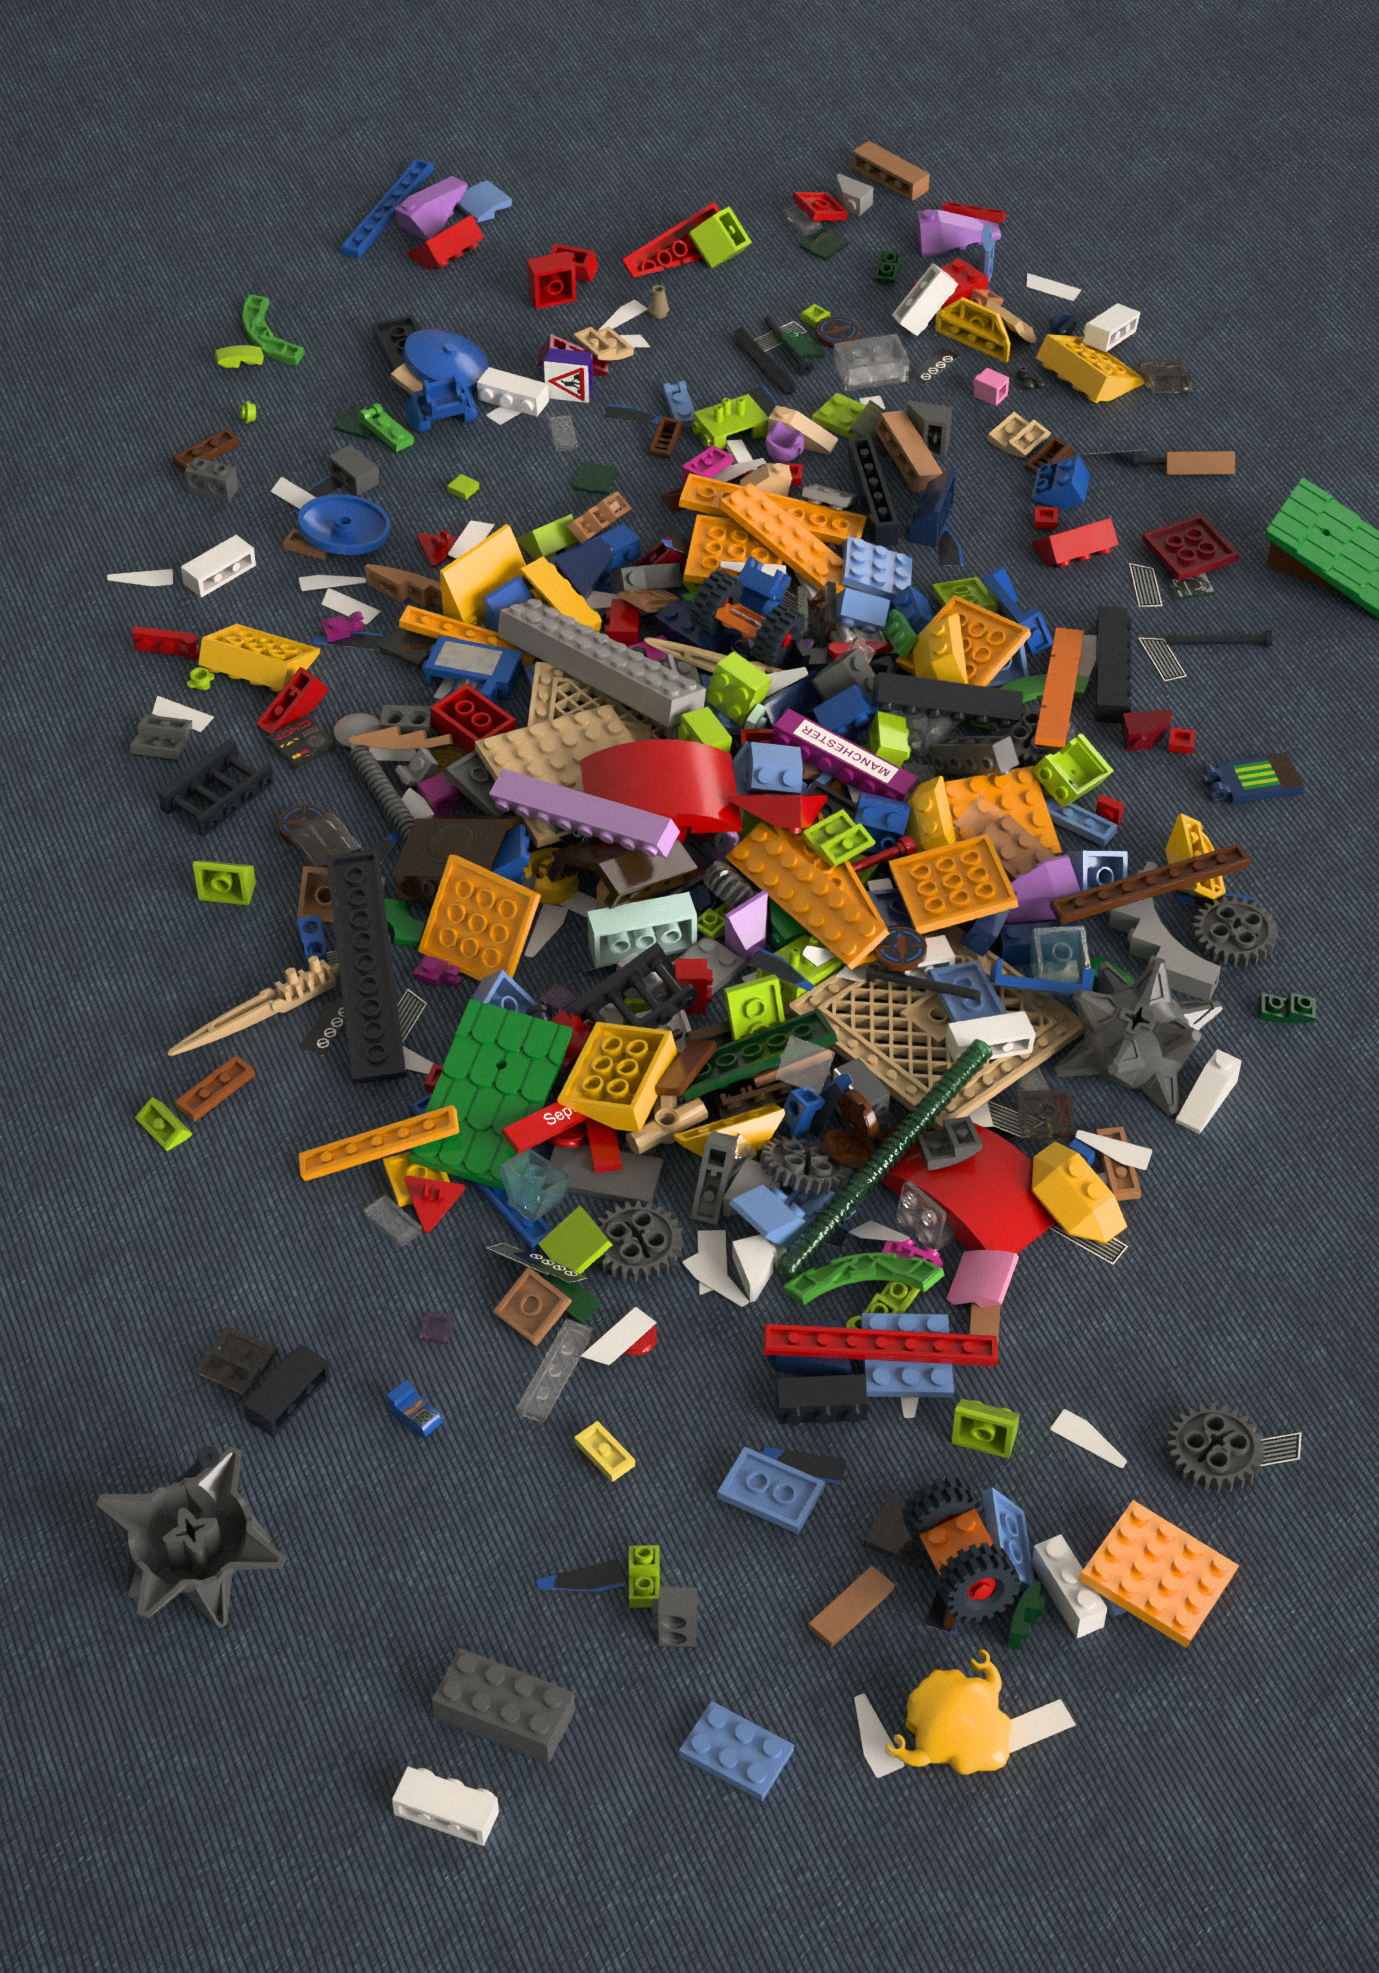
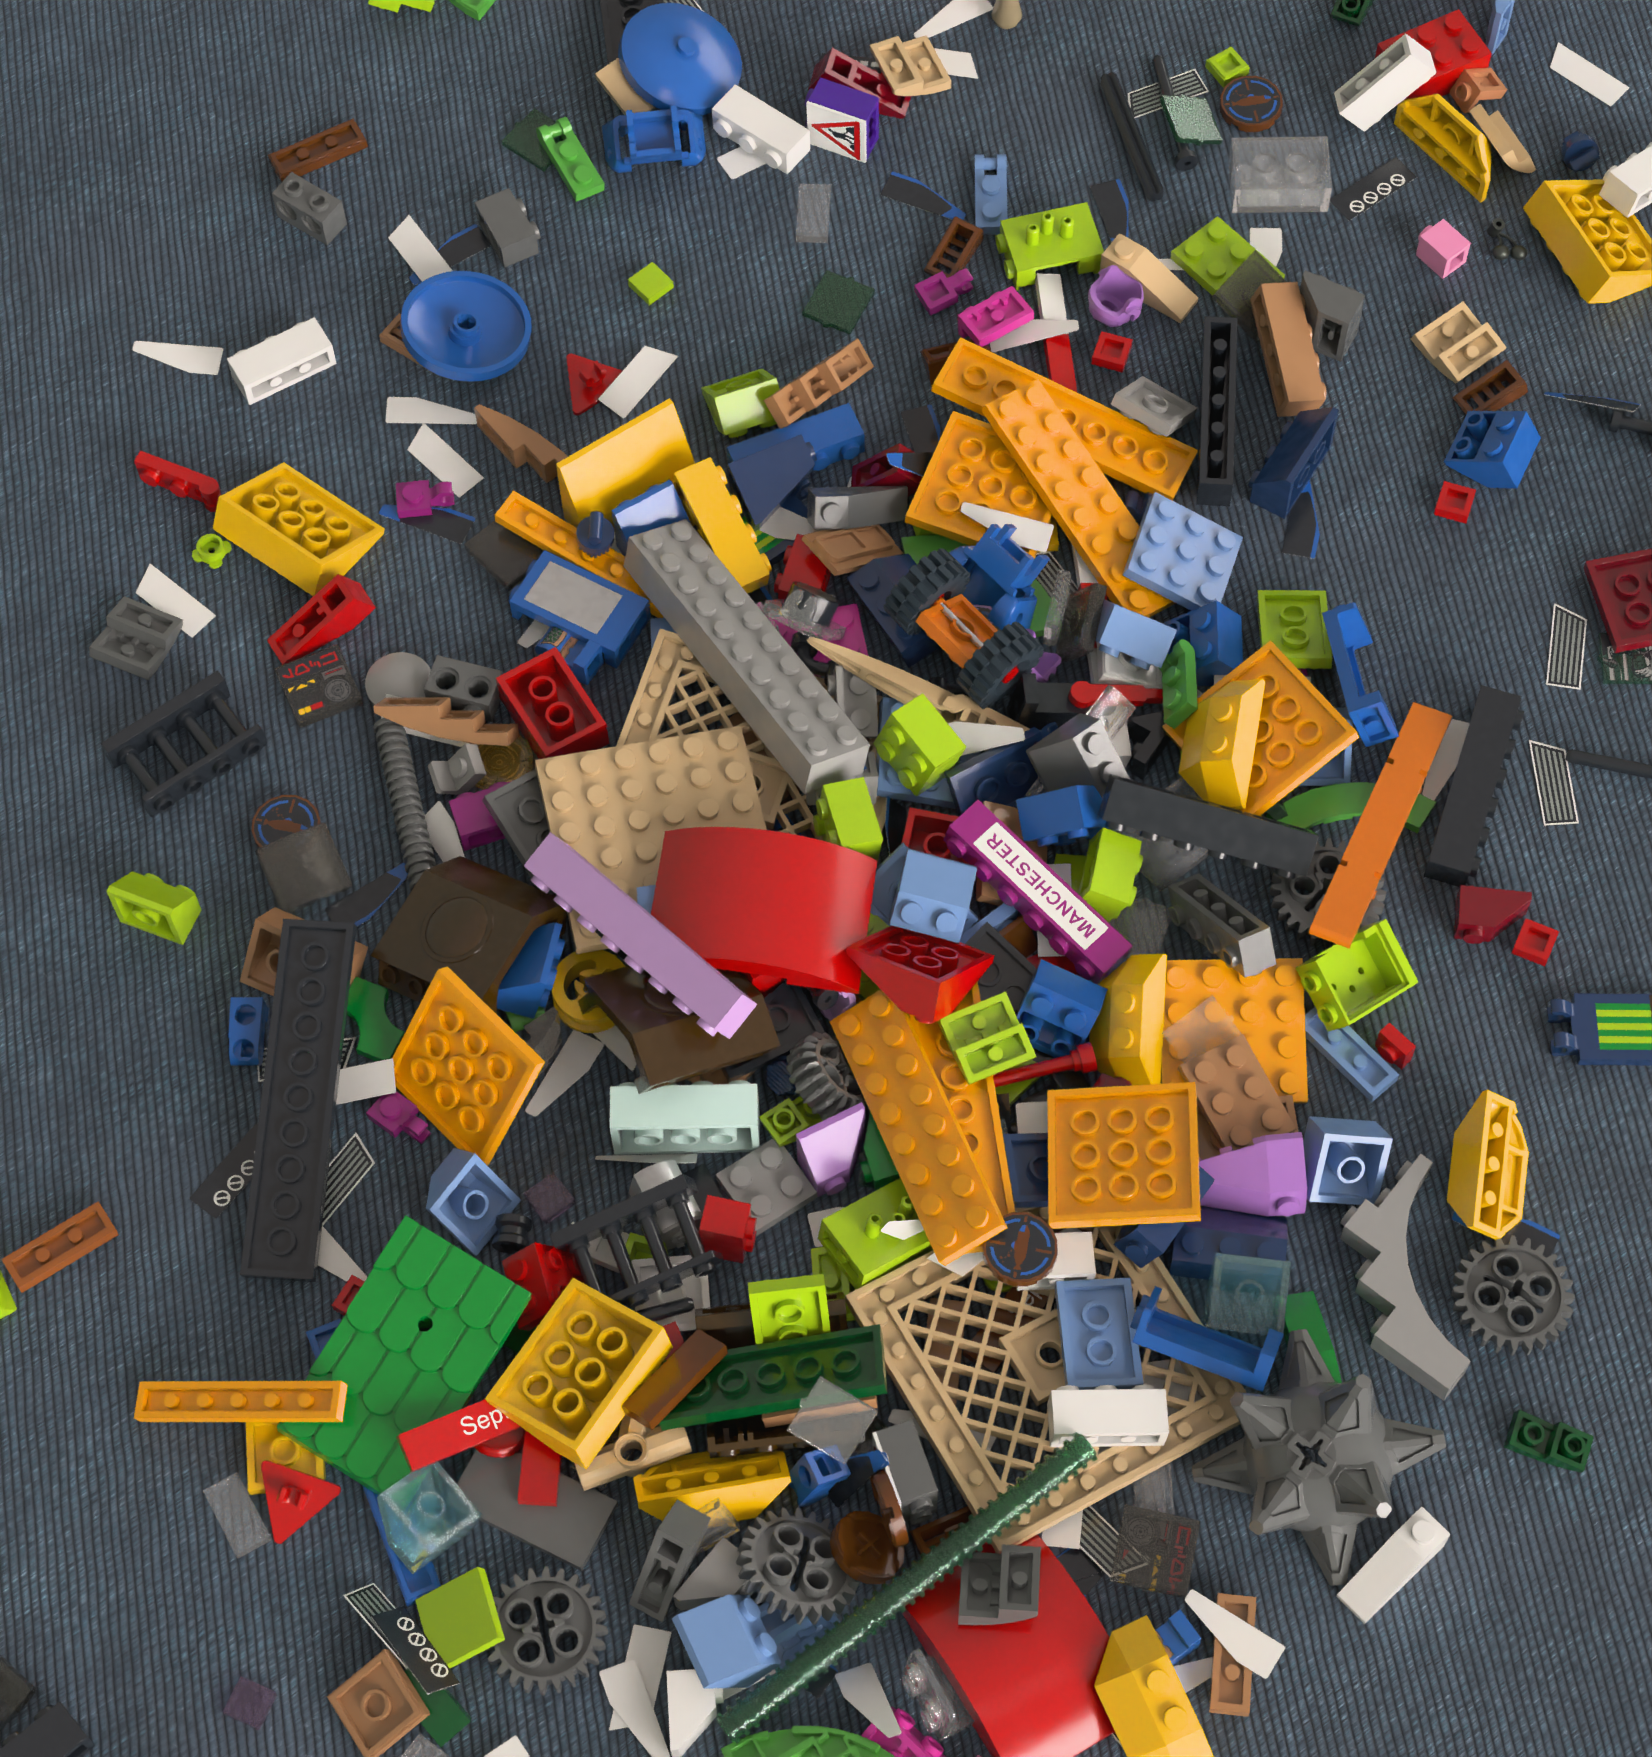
camera: 15 degrees right, 15 degrees up
(248, 412) = (388, 96): lime plate -> none
(269, 1002) = (163, 1122): tan piece -> none
(410, 953) = (366, 1081): none -> white sticker
(473, 618) = (595, 534): none -> dark blue piece
(633, 631) = (807, 611): none -> clear piece
(664, 460) = (941, 292): none -> magenta plate
(756, 718) = (936, 795): light aqua plate -> none
(770, 478) = (1072, 365): tan slope -> none
(776, 965) = (849, 1238): black sticker -> none
(873, 973) = (978, 1269): black bar -> none
(1077, 543) = (1484, 557): slope -> none
(1149, 884) = (1407, 1206): reddish brown tile -> none

